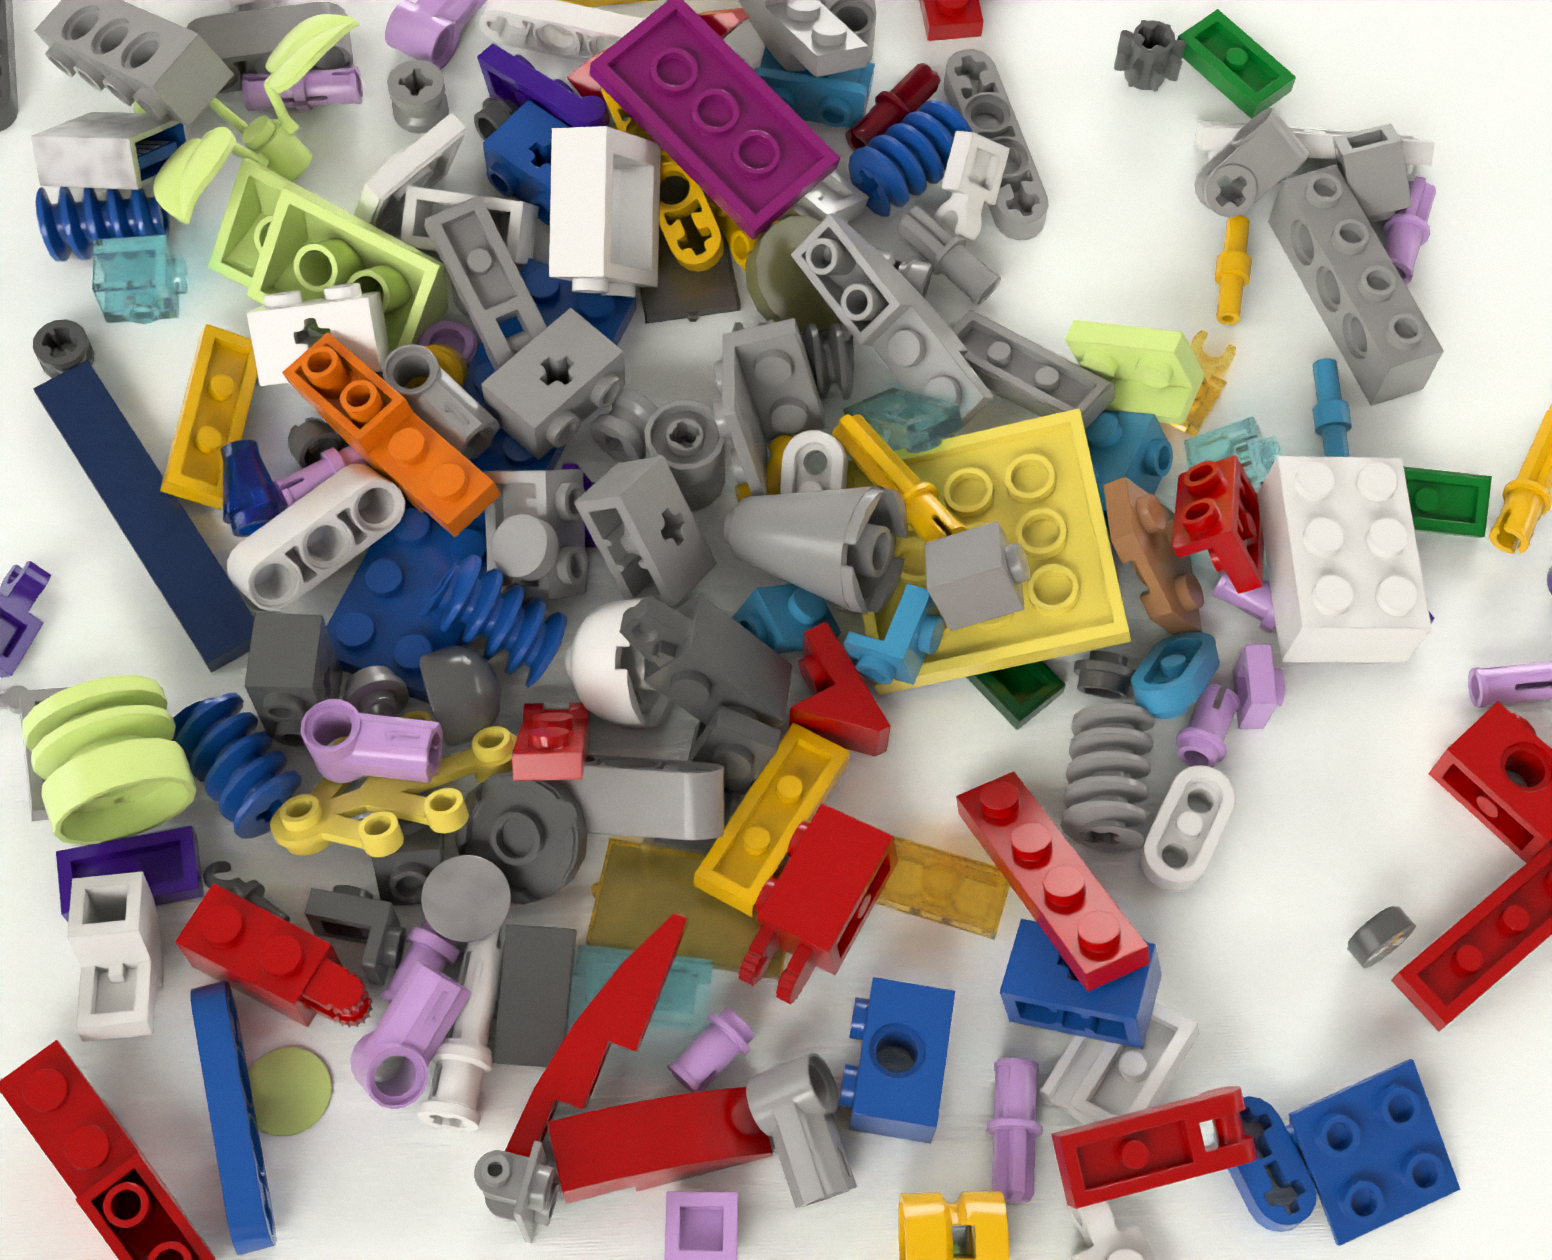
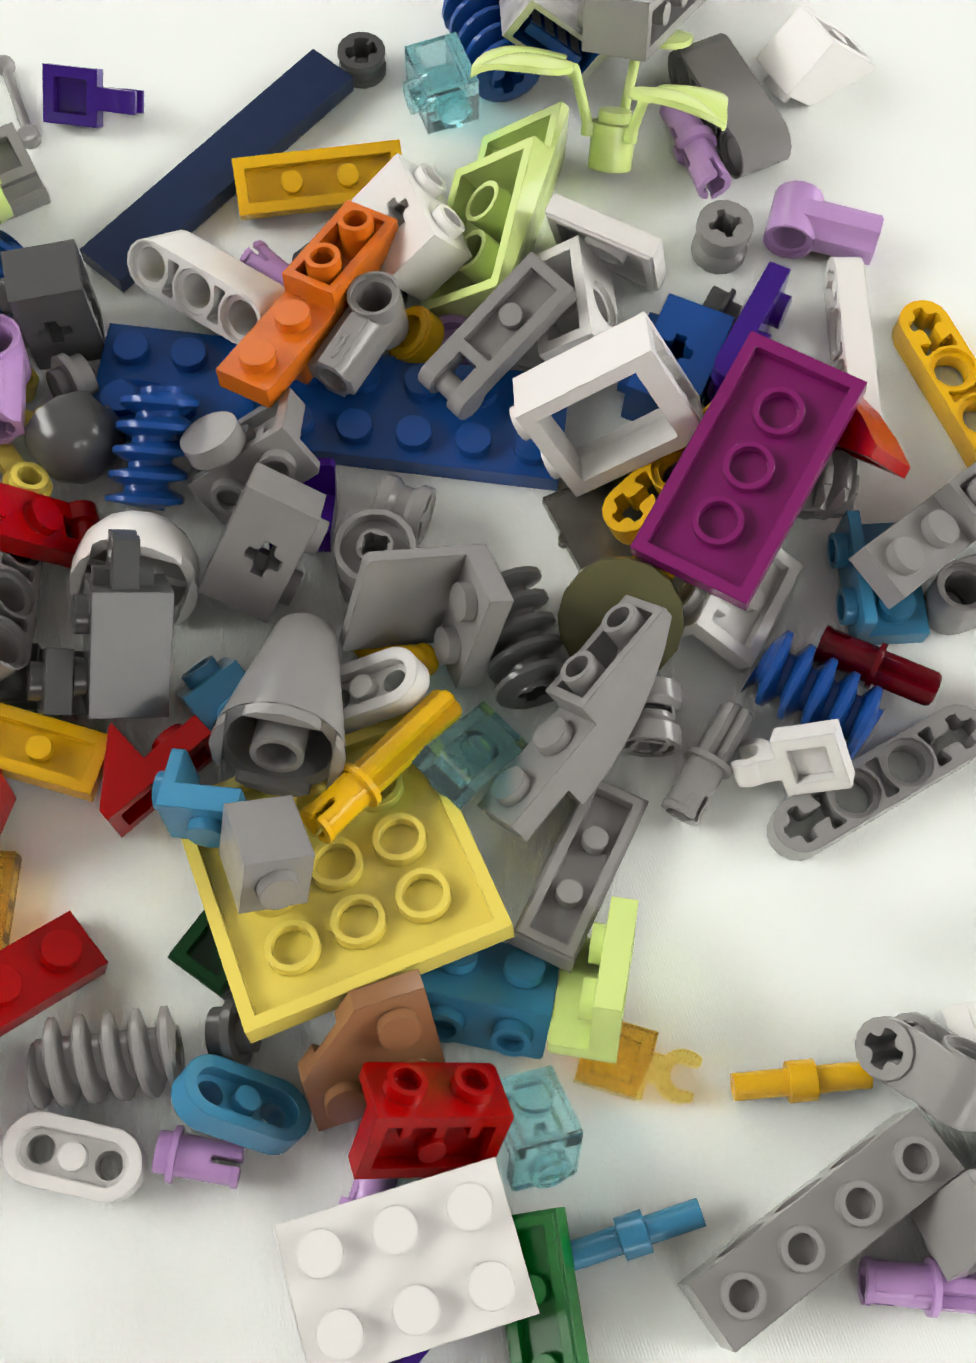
camera: 75 degrees right, 5 degrees up
(248, 489) = (248, 222): clear blue cone -> none
(555, 384) = (409, 424): light grey brick -> none
(1257, 686) = (253, 1204): lavender plate -> none

